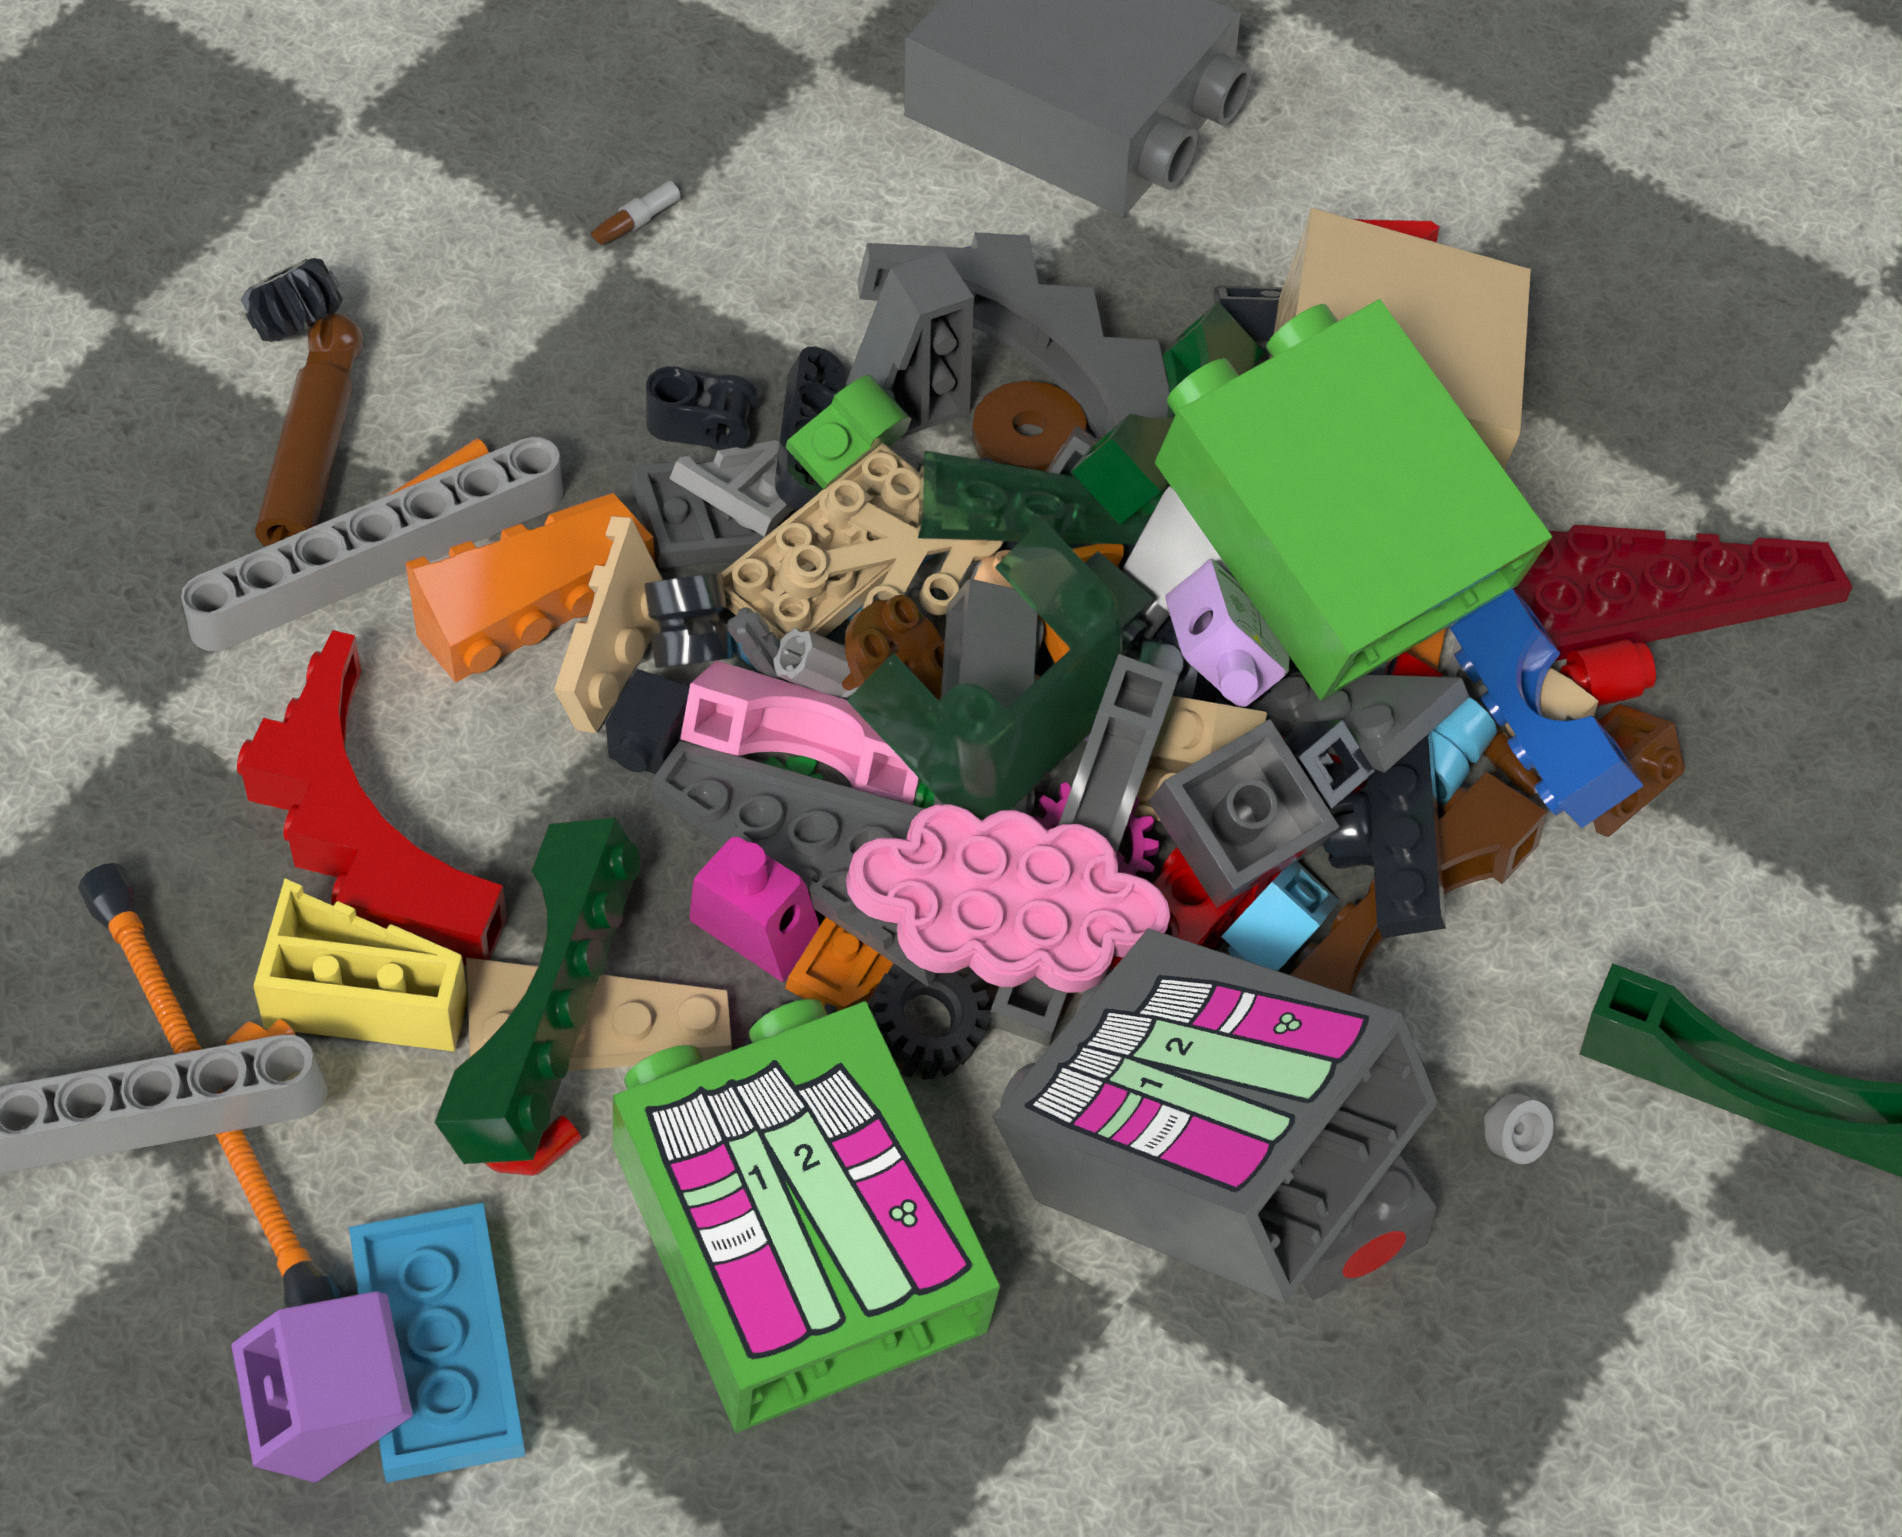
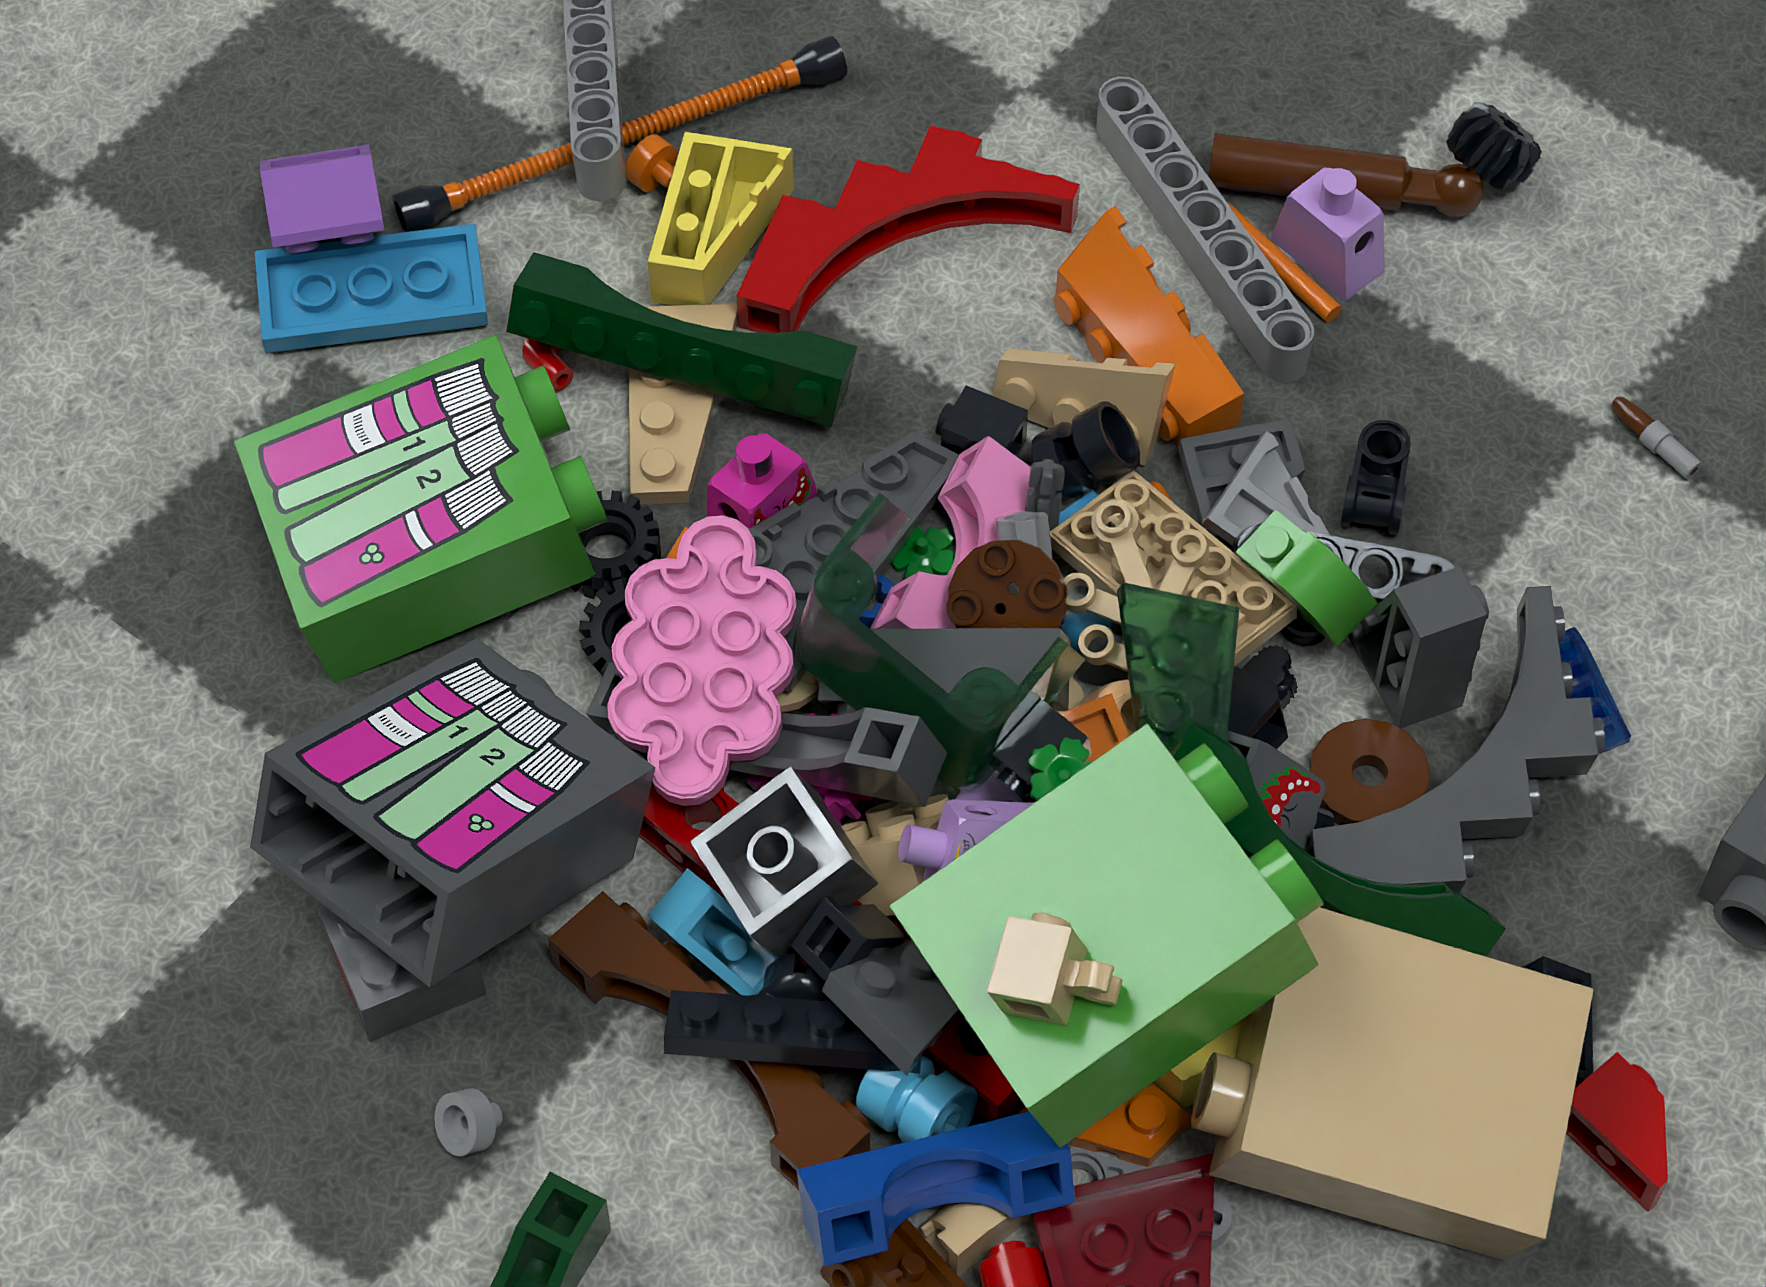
camera: 95 degrees right, 5 degrees up
(393, 429) = (1333, 231): none -> lavender torso
(1139, 567) = (1056, 767): none -> green plant
(1439, 494) = (1044, 969): none -> tan brick

